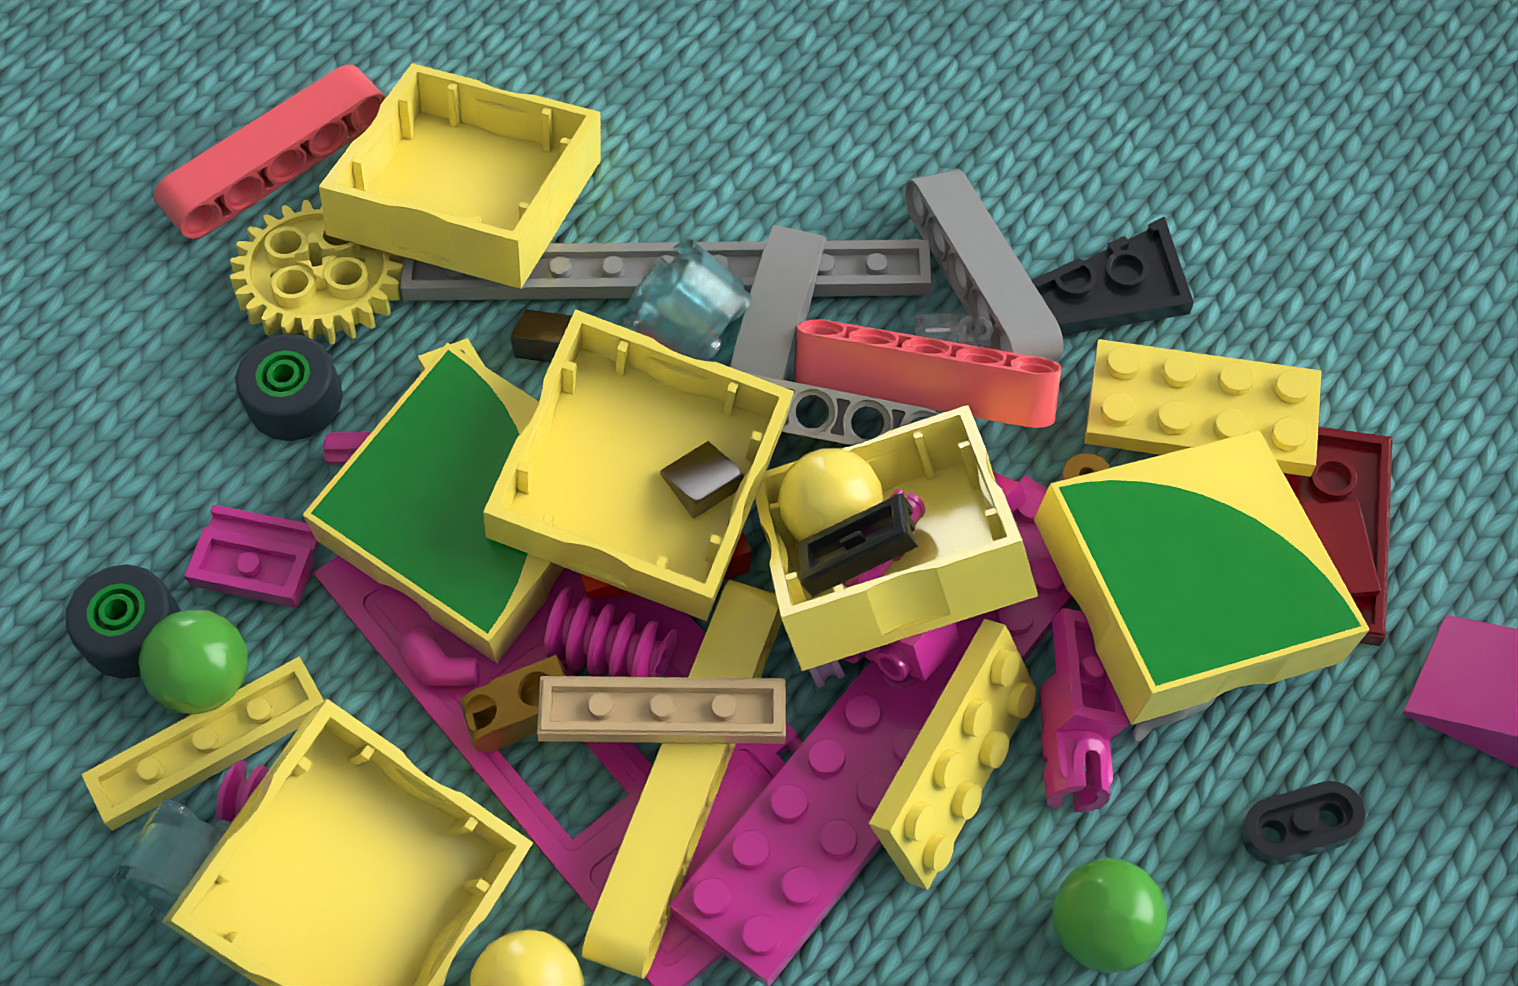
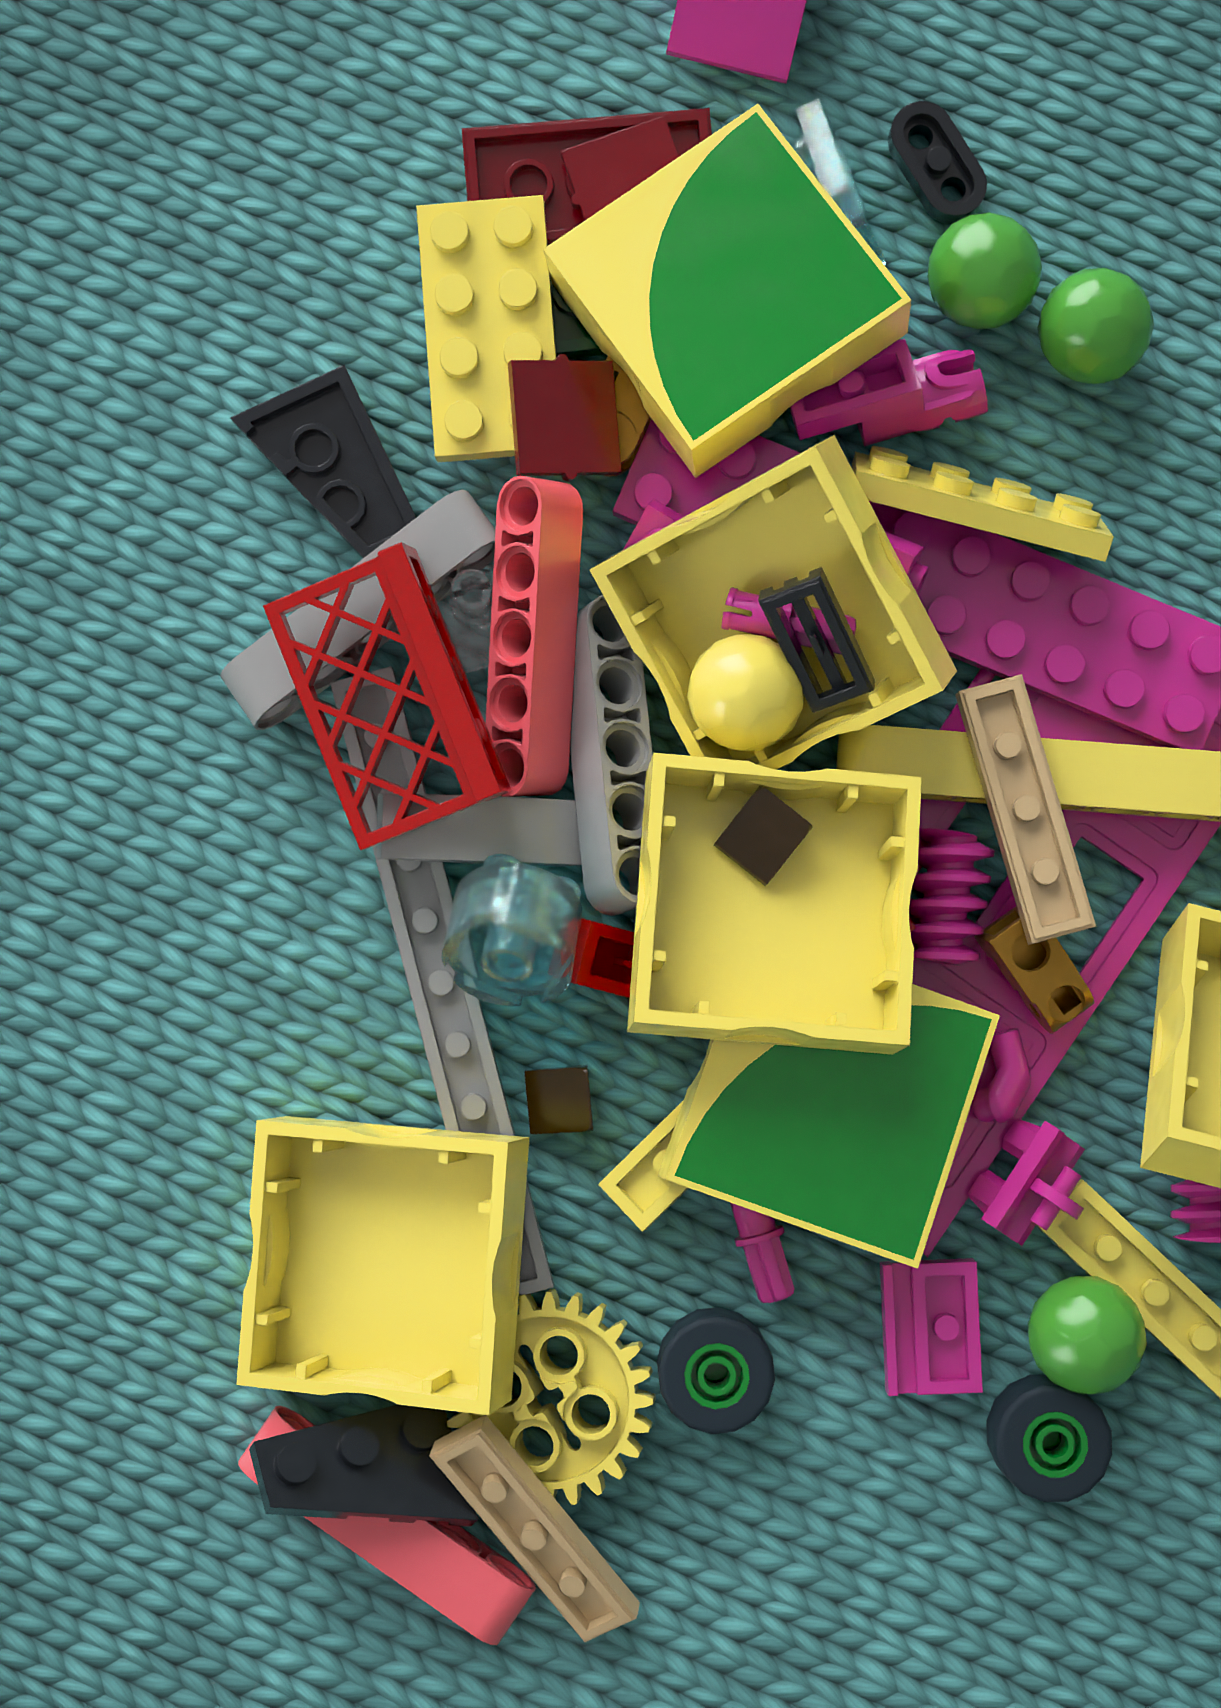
camera: 105 degrees left, 25 degrees up
(223, 231) = (535, 1528): none -> tan tile
(315, 127) = (361, 1468): none -> black wing
(335, 655) = (1035, 1186): none -> dark pink hips
(904, 278) = (439, 675): none -> red fence
(1107, 427) = (564, 418): none -> dark red piece
(1184, 825) = (984, 271): none -> bright green piece
(1291, 717) = (825, 156): none -> clear light blue wing

